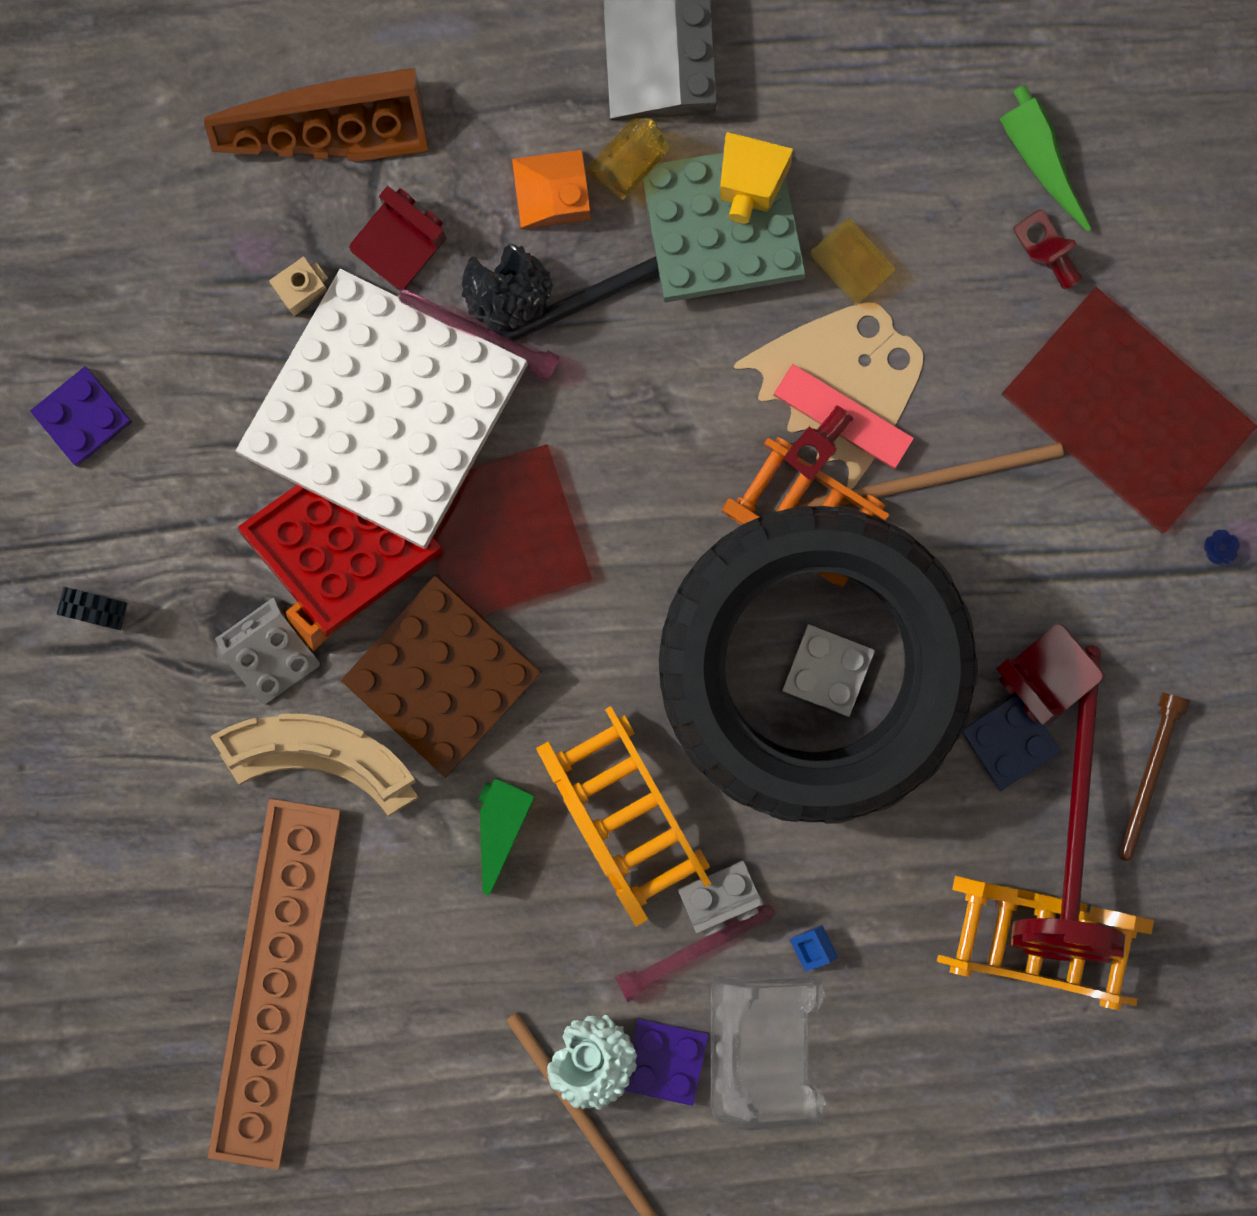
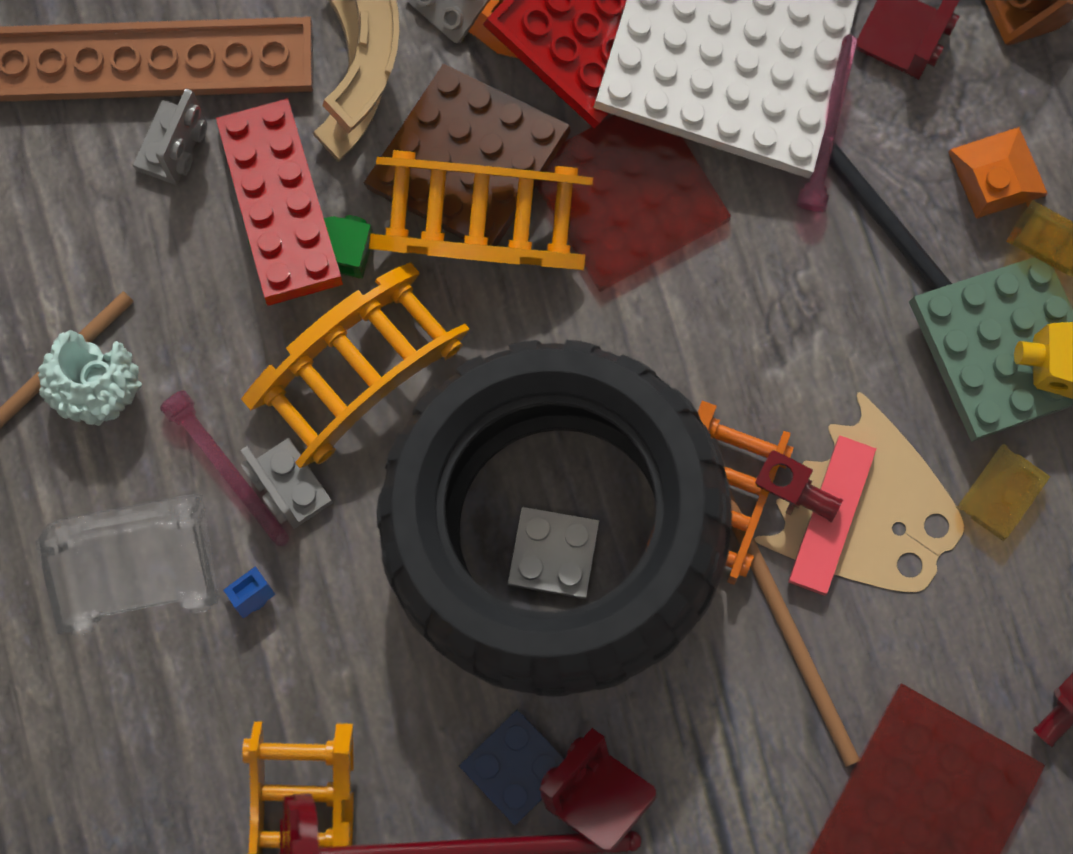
camera: 75 degrees right, 10 degrees down
(366, 953) = (172, 139): none -> light grey bracket
(454, 860) = (278, 202): none -> plate
(511, 293) = (875, 141): black hair -> none
(540, 685) = (475, 244): none -> light orange fence
(667, 1061) = (104, 462): dark purple plate -> none

